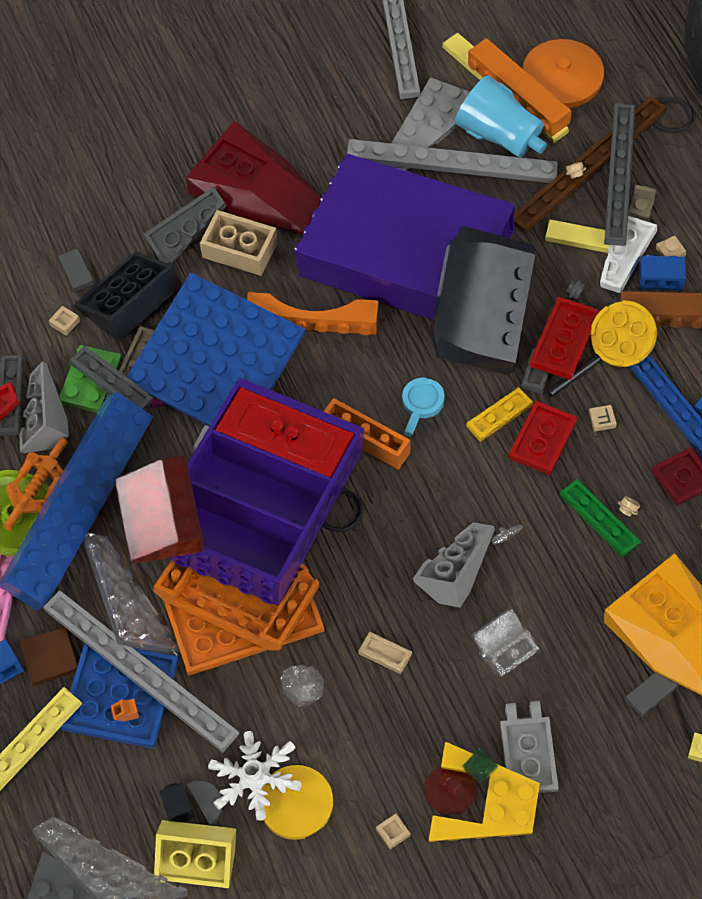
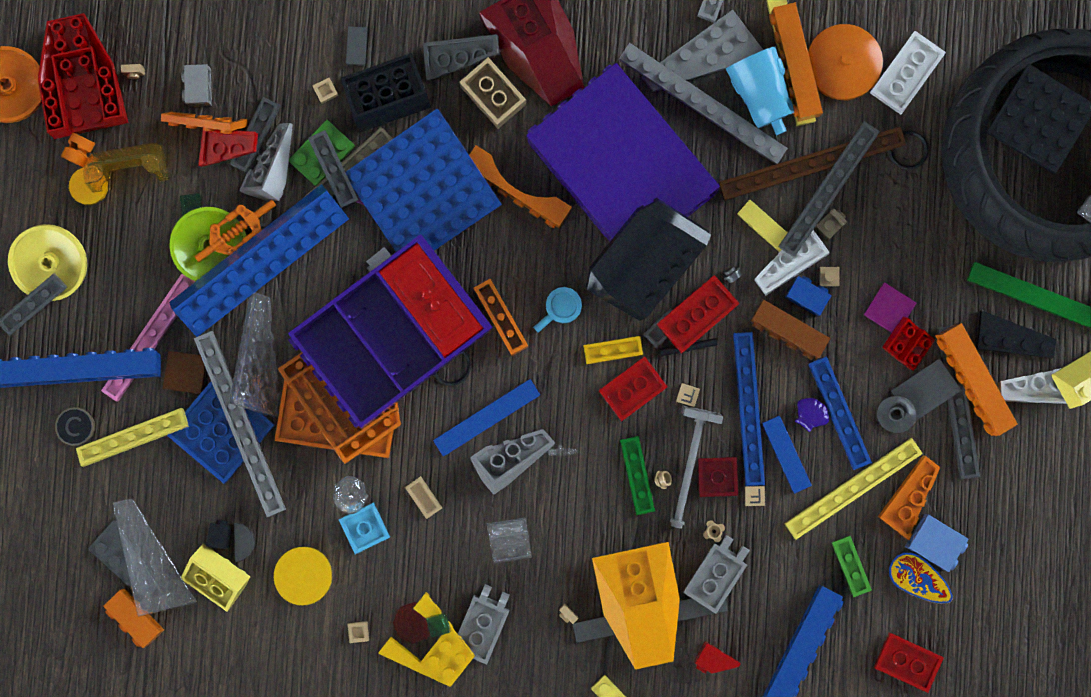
camera: 25 degrees right, 25 degrees up
(125, 710) = (215, 449): orange piece -> none
(159, 511) = (299, 327): clear red slope -> none
(254, 775) = (278, 538): white piece -> none
(337, 717) = (364, 528): none -> medium azure tile
(406, 541) = (486, 417): none -> blue tile
(575, 169) = (794, 168): tan plate -> none
(614, 688) = (567, 614): none -> tan plate
(623, 333) = (743, 337): yellow tile -> none
(627, 54) = (907, 72): none -> white plate
(629, 422) = (701, 417): none -> light grey tile

